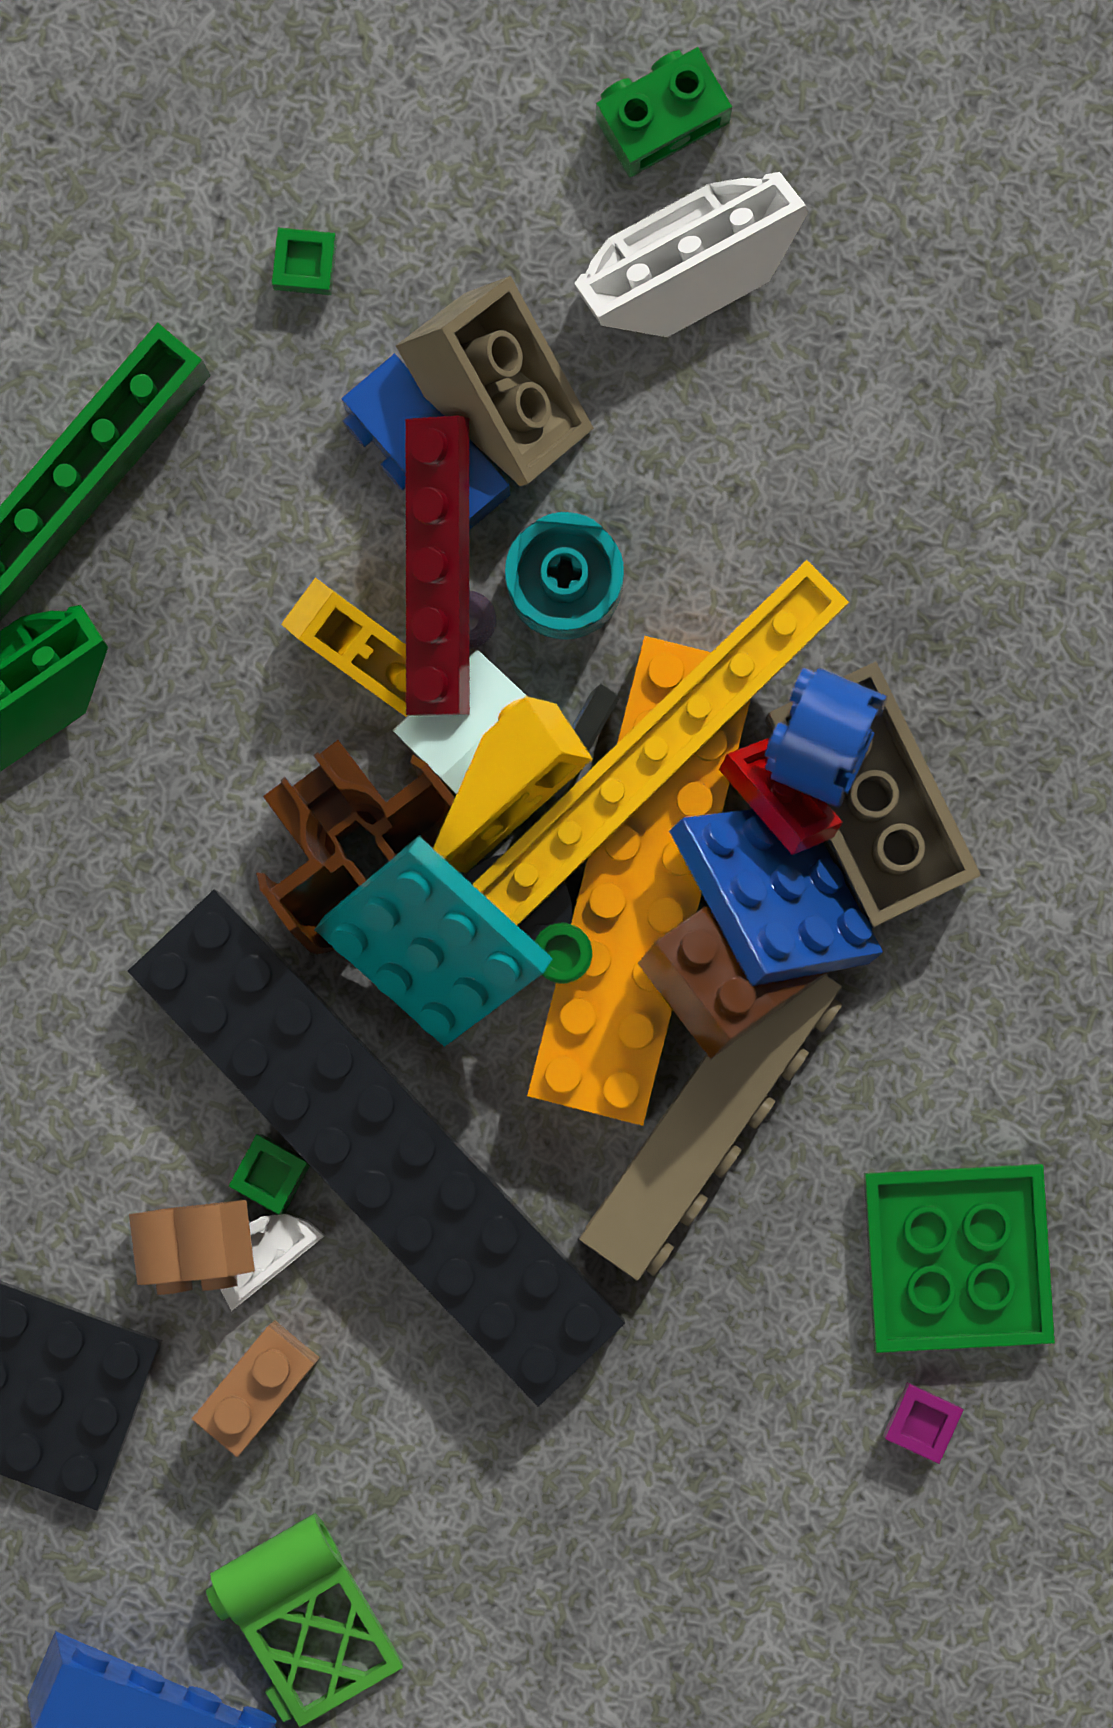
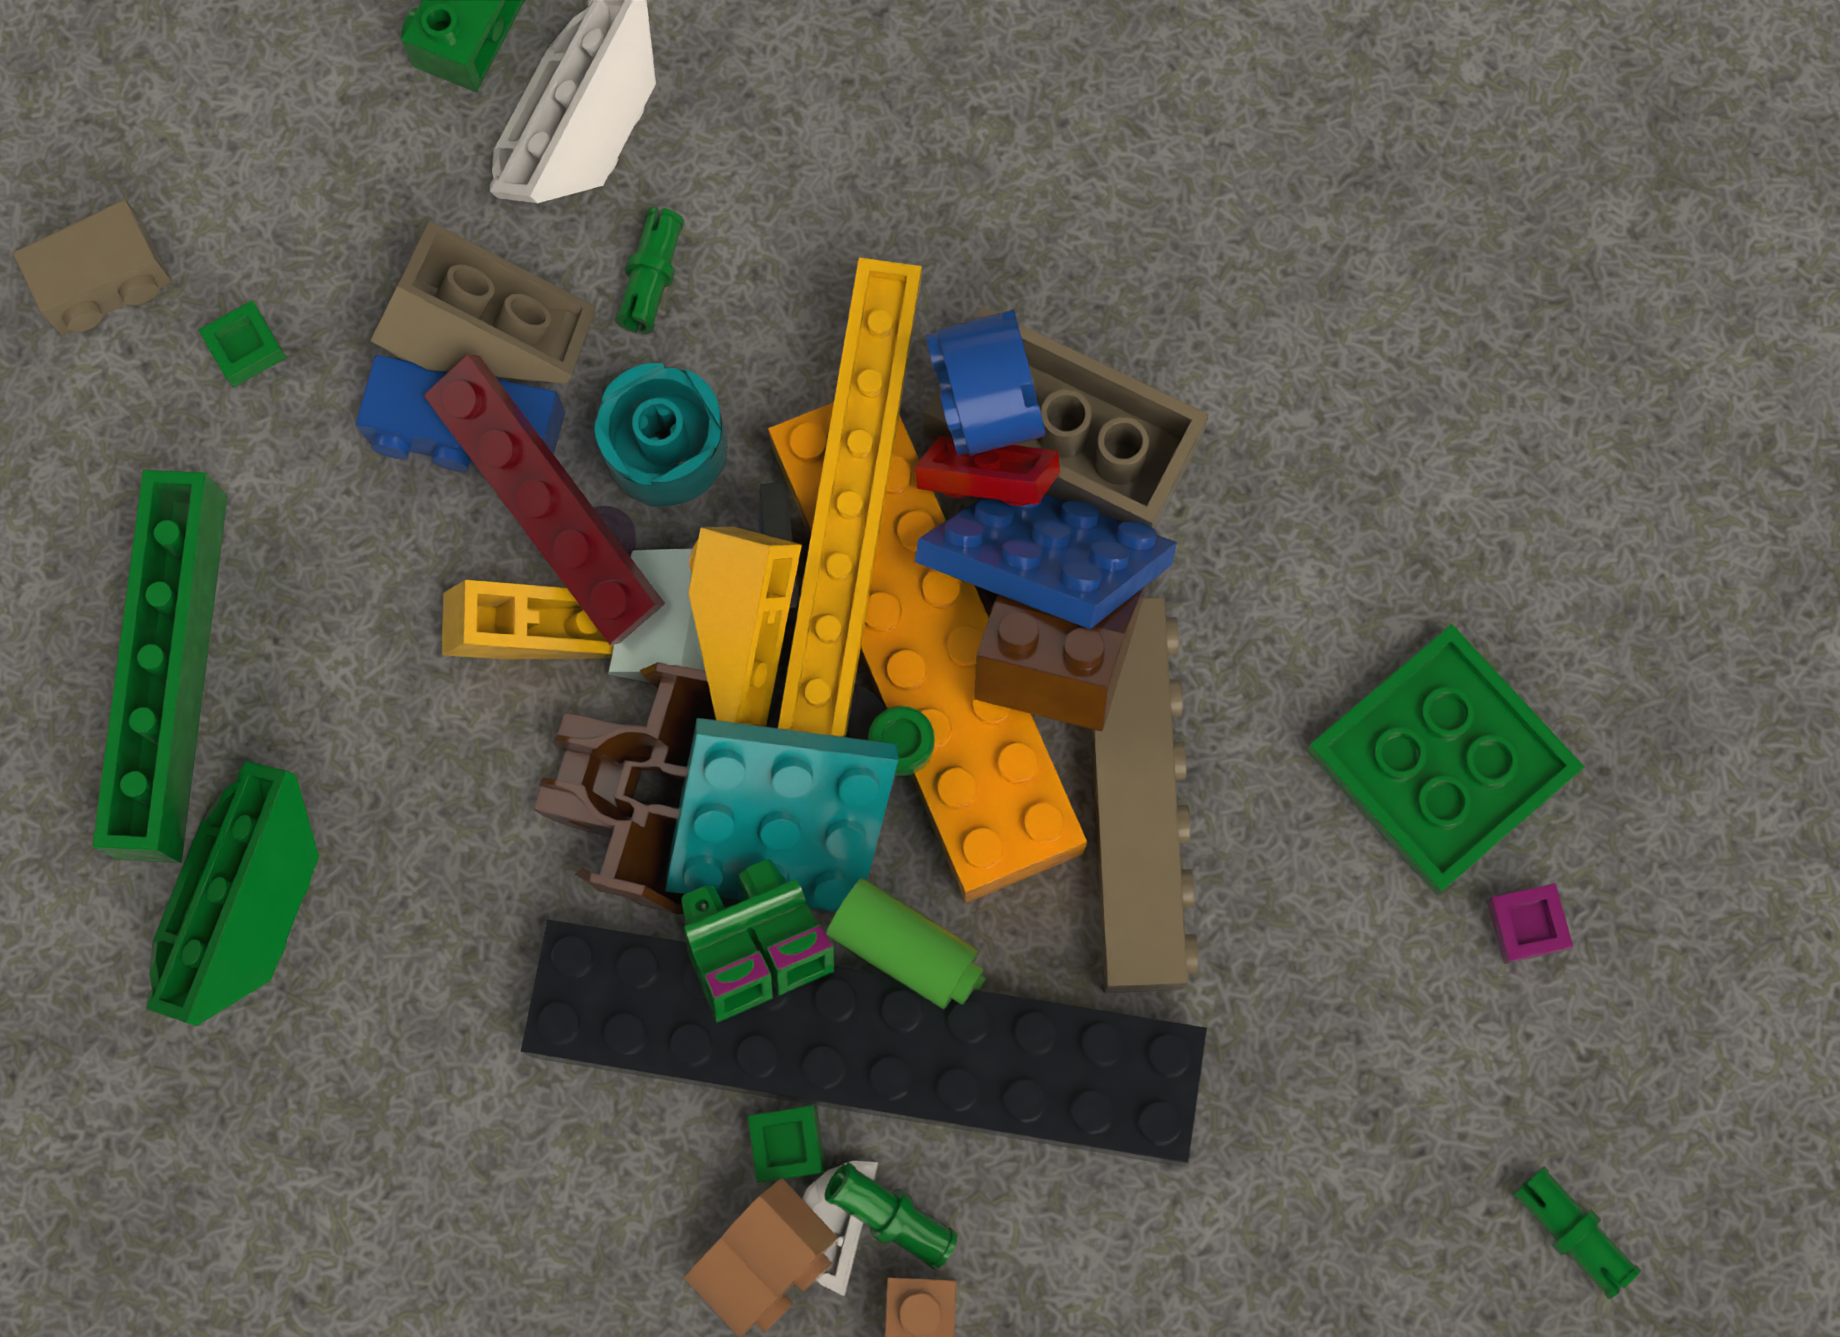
camera: 40 degrees left, 10 degrees down
(233, 116) = (92, 268): none -> dark tan brick
(304, 1281) = (890, 1216): none -> green pin
(372, 1019) = (773, 920): none -> green hips
(452, 1111) = (906, 945): none -> bright green piece
(654, 431) = (649, 270): none -> green pin
(780, 1659) = (1577, 1233): none -> green pin

